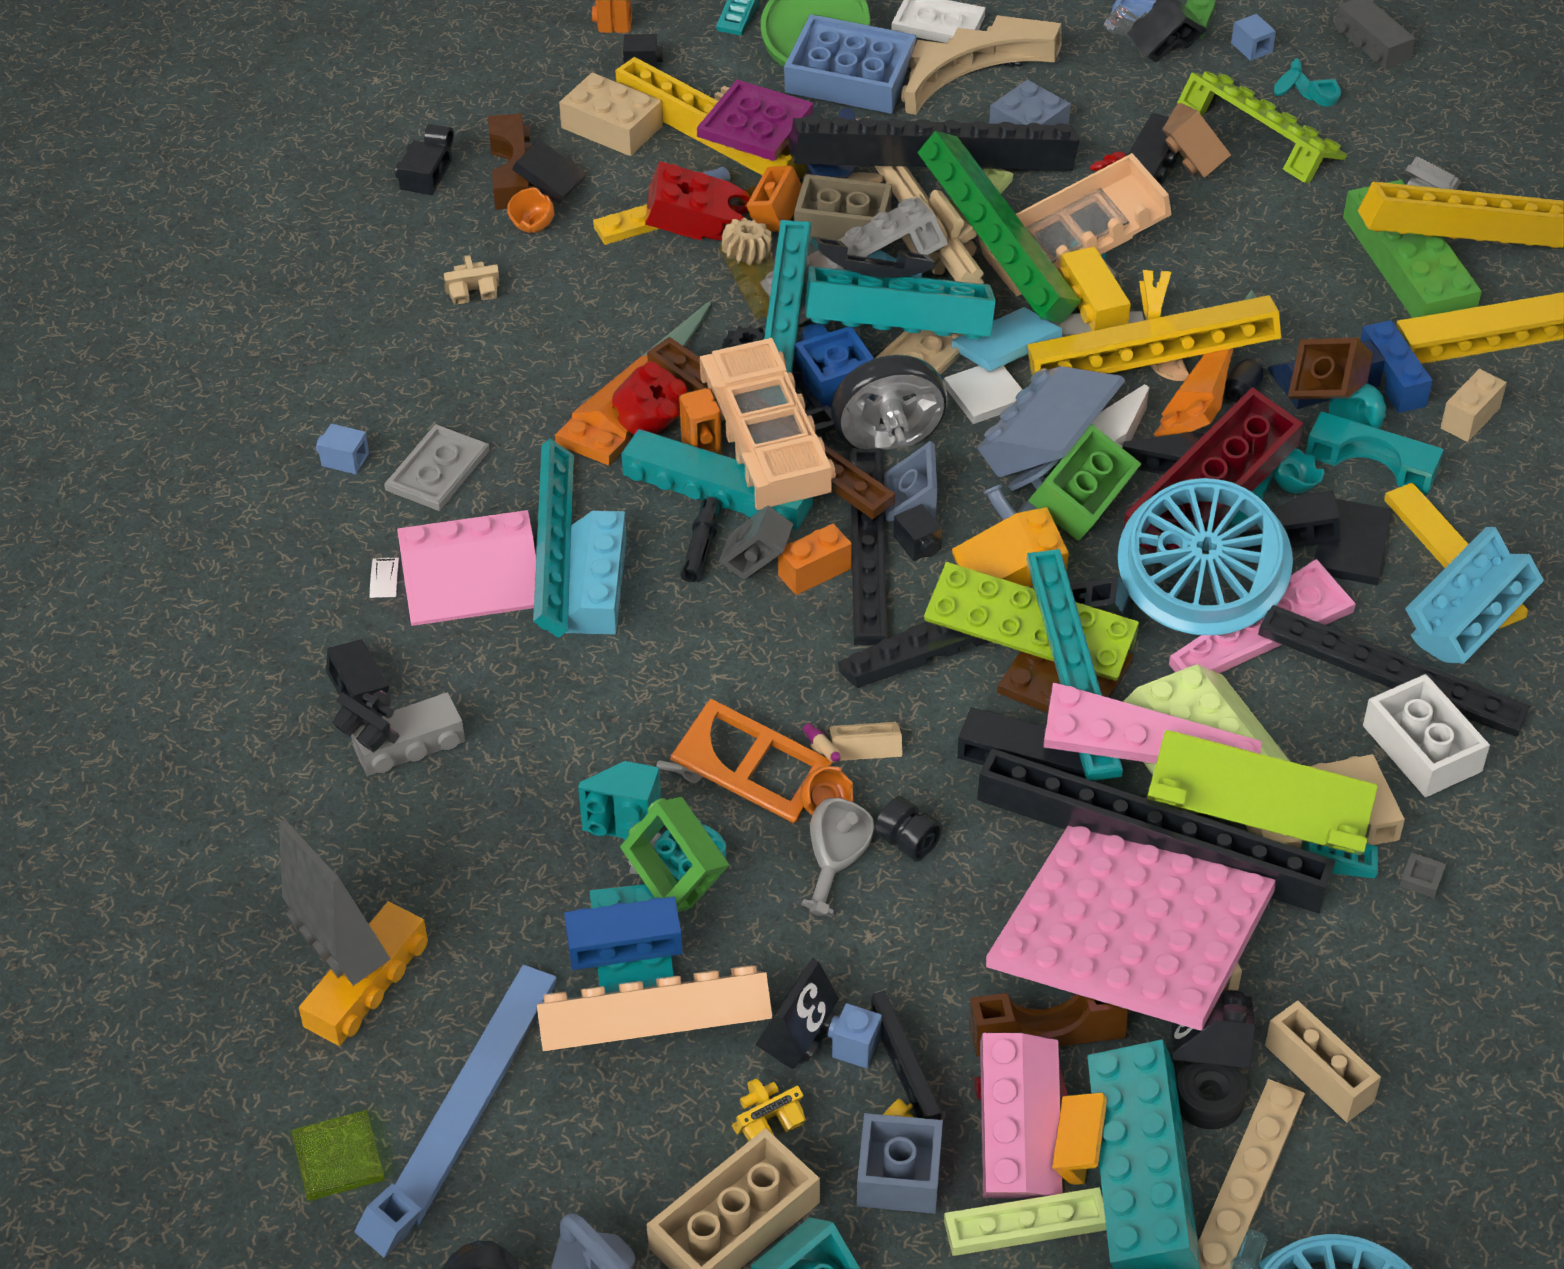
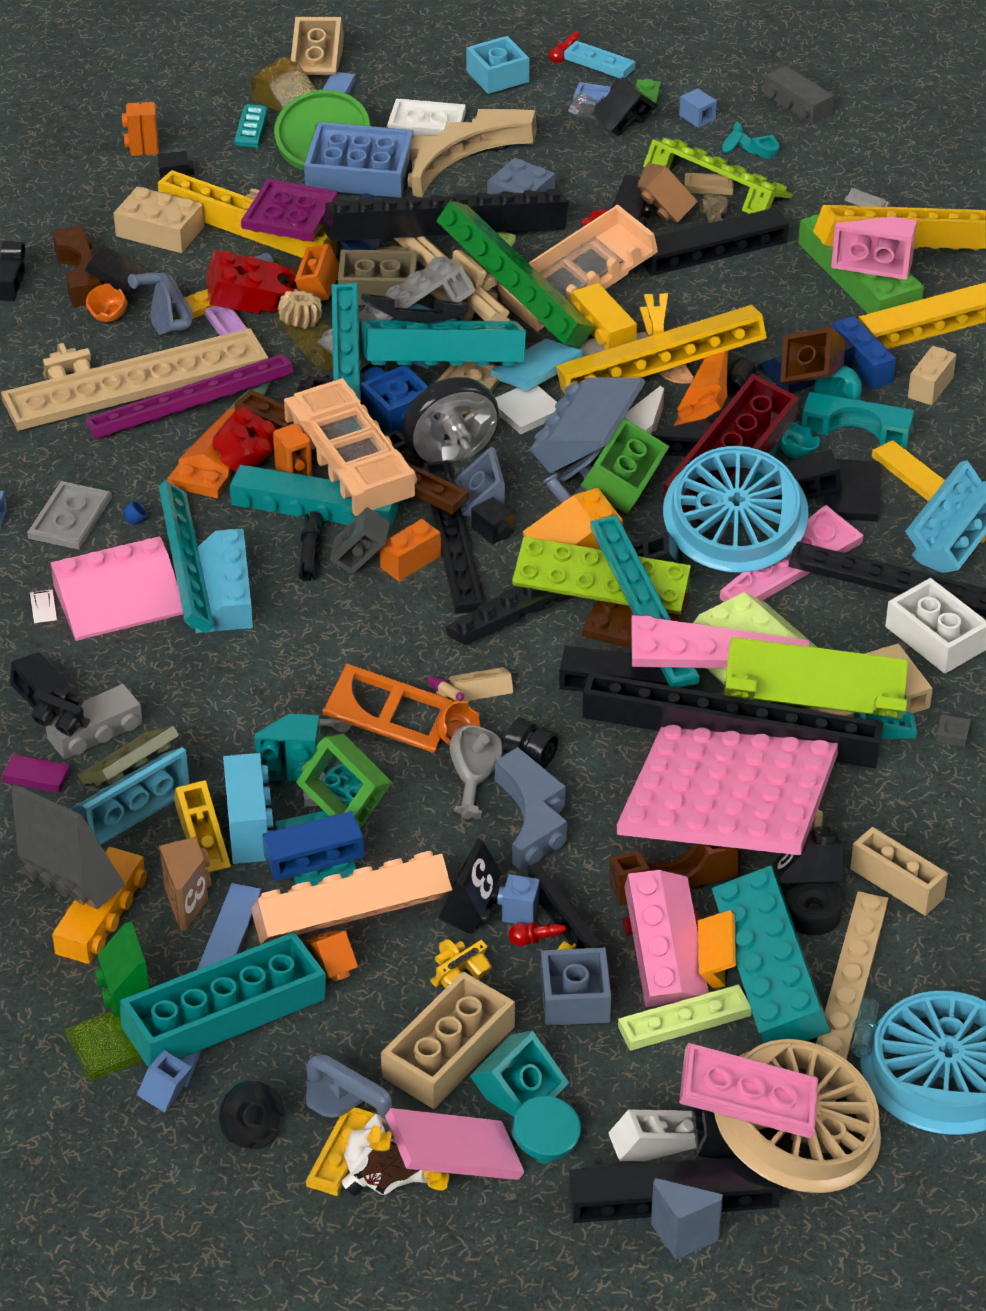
camera: 10 degrees left, 5 degrees down
(330, 791) = (36, 773): none -> magenta tile
(369, 1073) = (121, 968): none -> green slope
(427, 840) = (135, 795): none -> medium azure slope
(436, 785) = (129, 755): none -> olive plate
(468, 956) = (185, 878): none -> medium nougat slope
(477, 1122) = (223, 999): none -> teal brick
(502, 890) = (200, 821): none -> yellow slope
(510, 473) = (135, 512): none -> blue hinge
(544, 306) = (130, 379): none -> tan plate
(556, 869) = (247, 806): none -> medium azure brick
(591, 222) = (166, 299): none -> sand blue piece
(600, 335) = (187, 396): none -> magenta plate
(618, 1076) = (332, 953): none -> orange slope
(662, 249) = (224, 320): none -> lavender tile
(853, 1079) = (523, 934): none -> red bar
(905, 904) = (540, 802): none -> sand blue arch
(1247, 205) = (717, 241): none -> black brick
(1248, 132) = (708, 183): none -> tan tile
(1250, 163) = (713, 207): none -> dark tan plate
(1429, 238) = (875, 246): none -> bright pink slope

